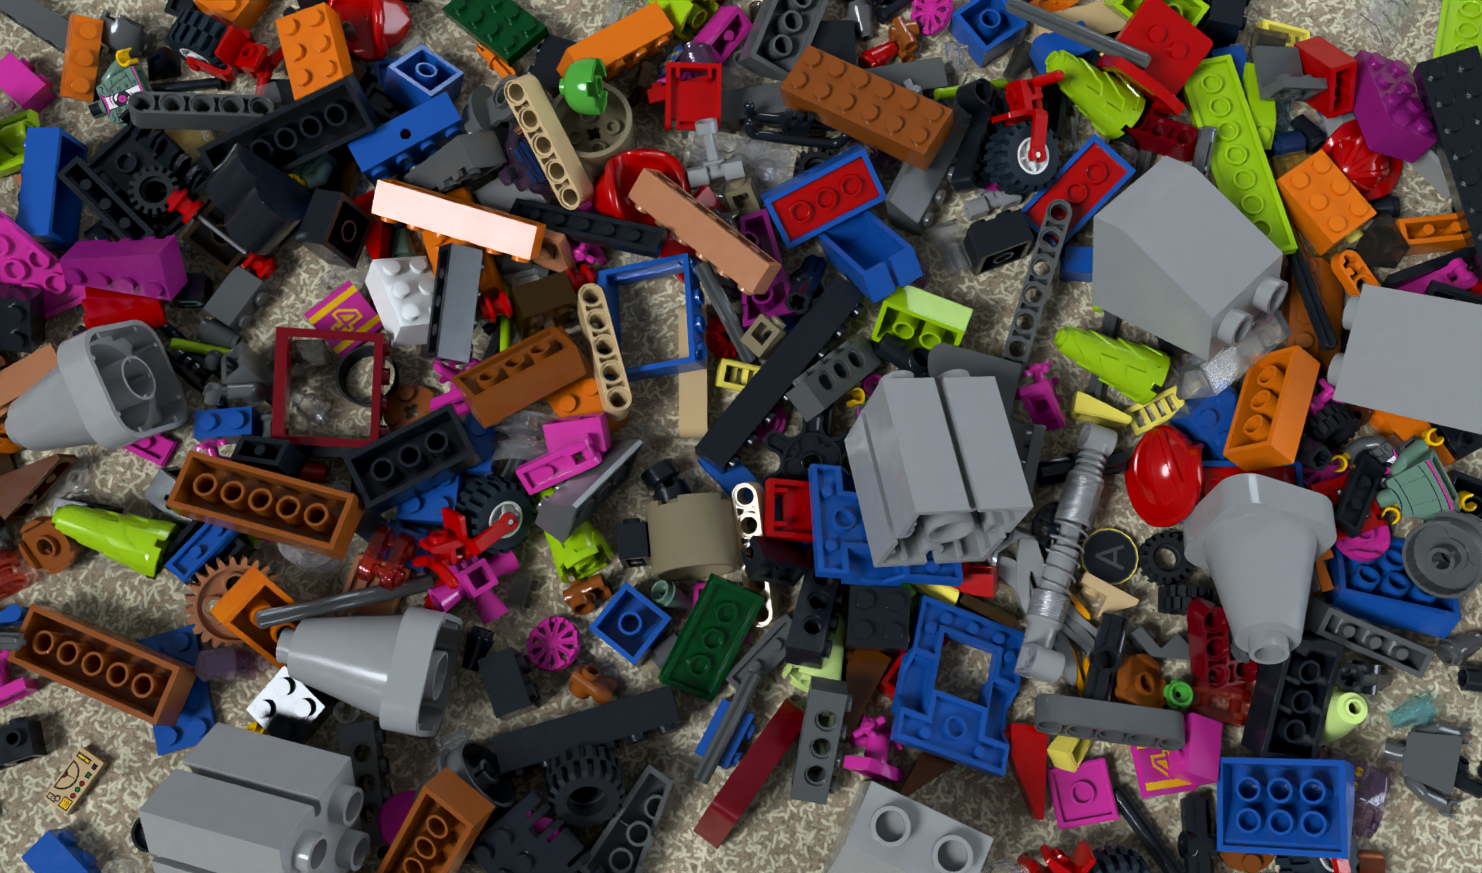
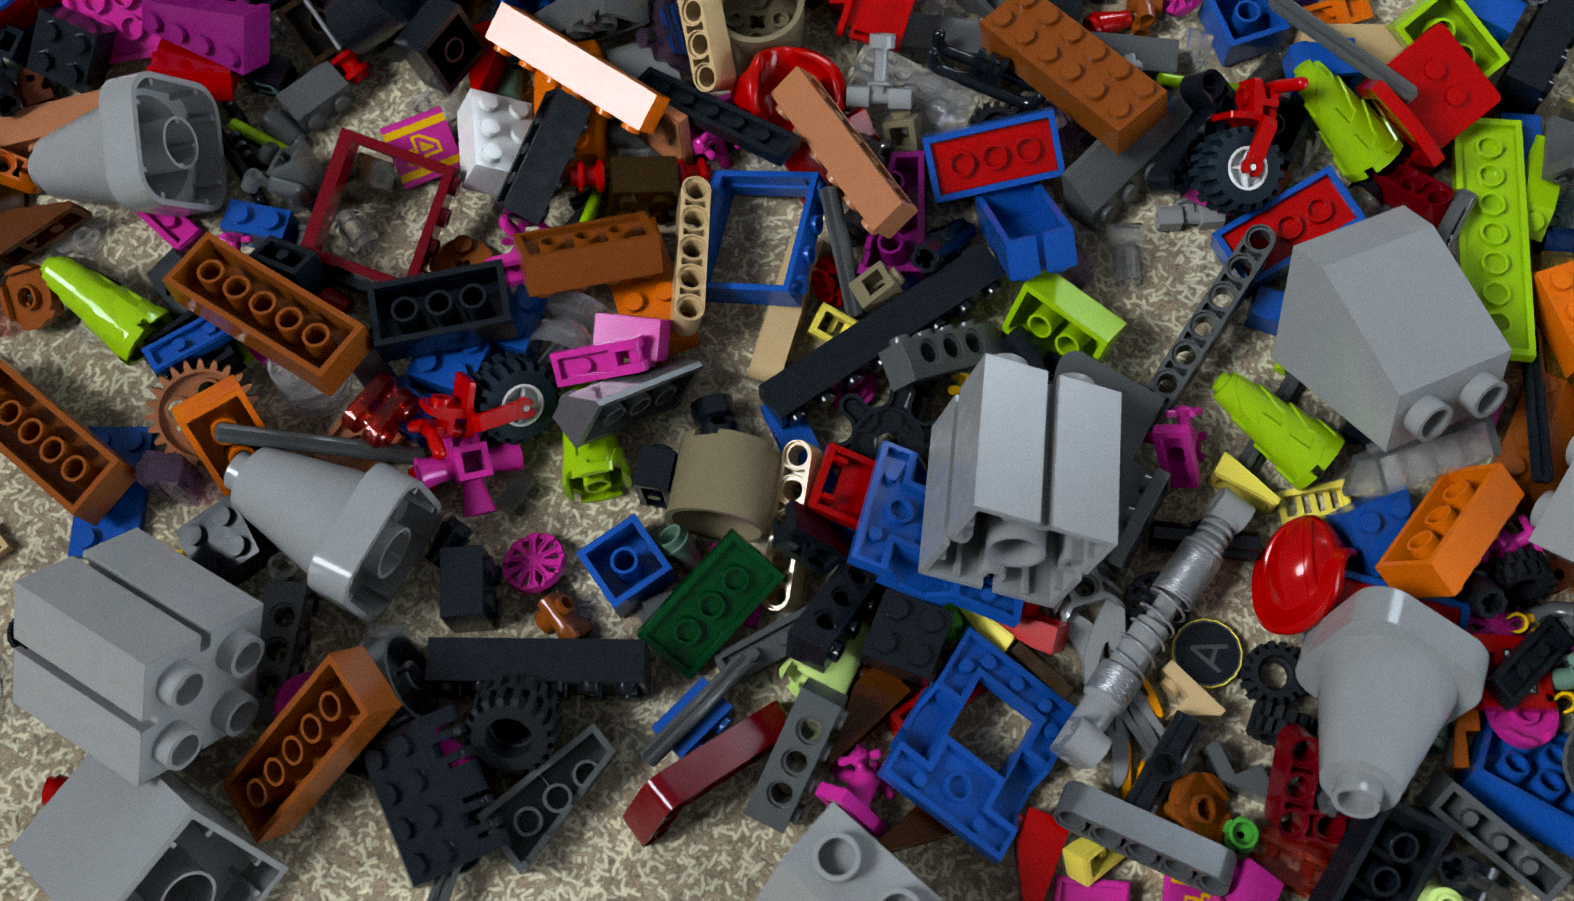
camera: 20 degrees right, 5 degrees down
(348, 361) = (410, 196): black tyre -> none
(584, 593) = (587, 516): dark orange plate -> none
(997, 241) = (1181, 258): black brick -> none

